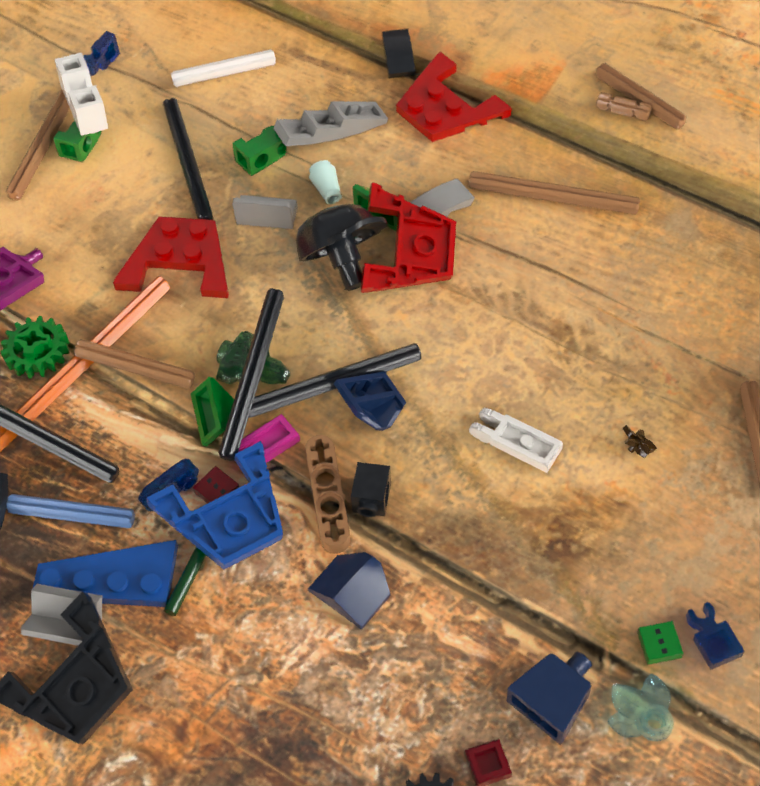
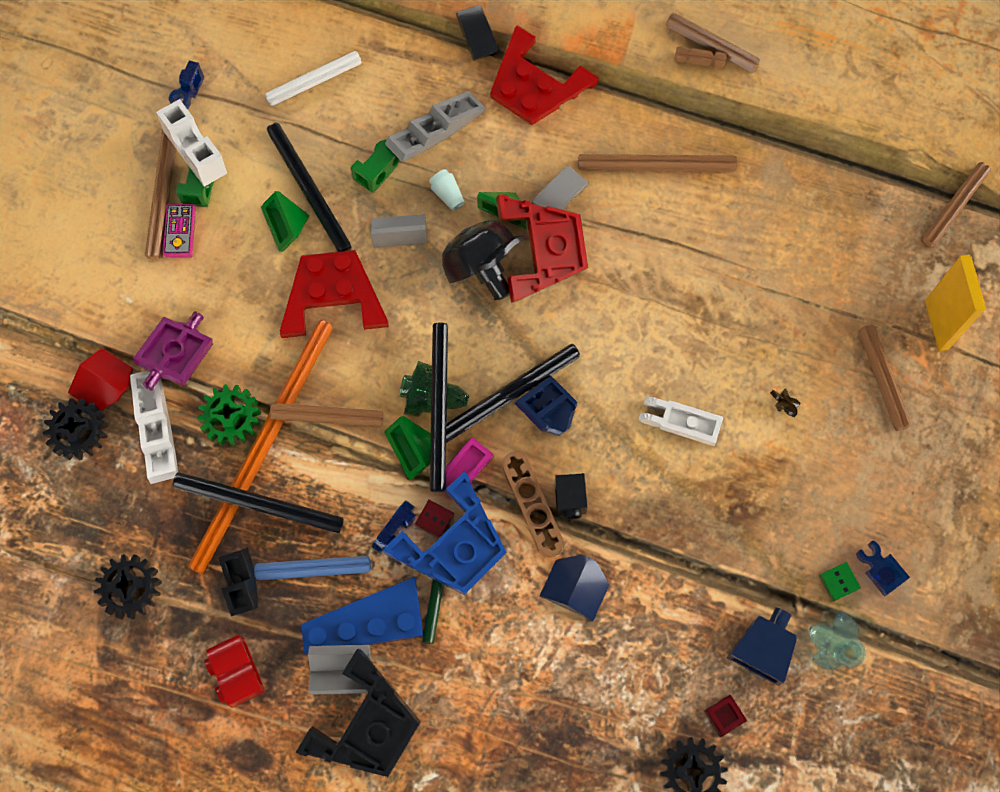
camera: 15 degrees left, 15 degrees up
(47, 177) = (179, 230): none -> tile
(153, 182) = (283, 219): none -> green slope

